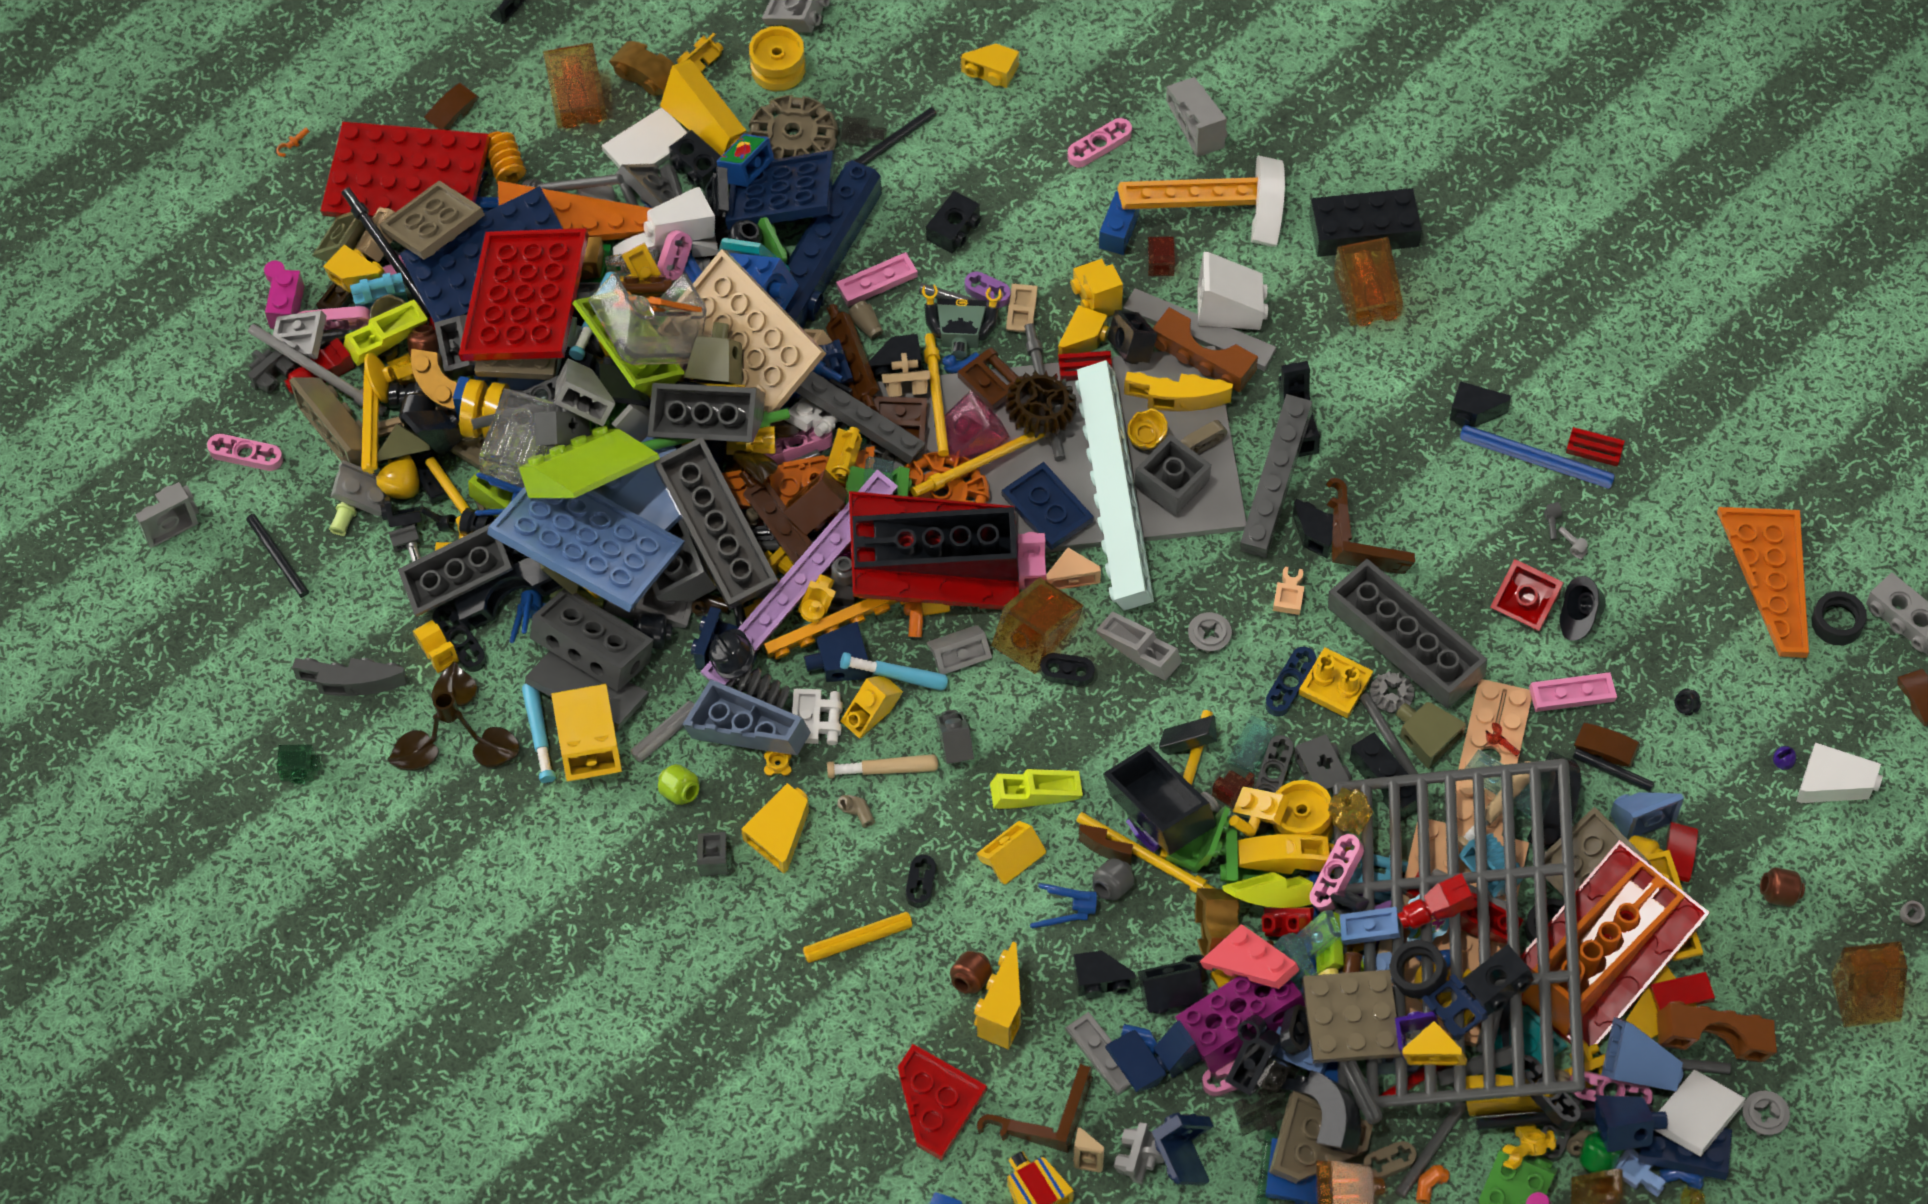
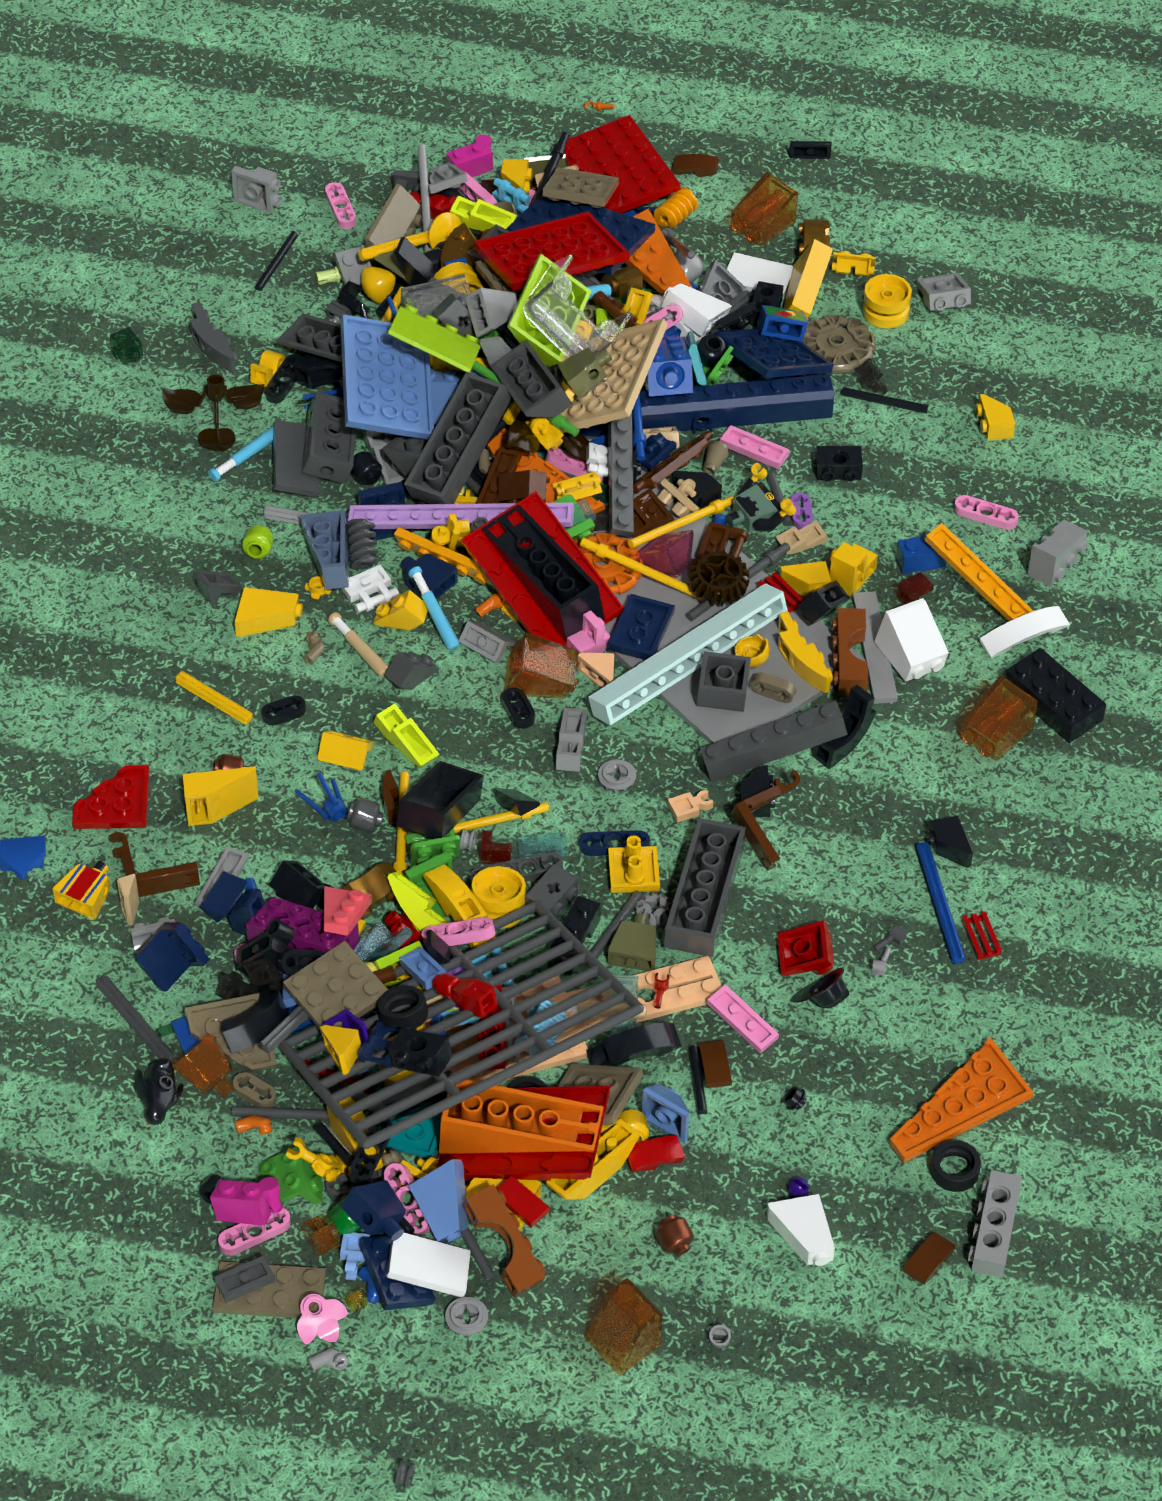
camera: 55 degrees right, 10 degrees down
(586, 732) = (252, 469): yellow slope -> none
(661, 305) = (594, 316): orange flag -> none
(731, 654) = (369, 505): black piece -> none
(1101, 973) = (279, 841): black slope -> none
(1258, 807) = (479, 863): yellow plate -> none
(1350, 810) = (511, 911): clear yellow brick -> none

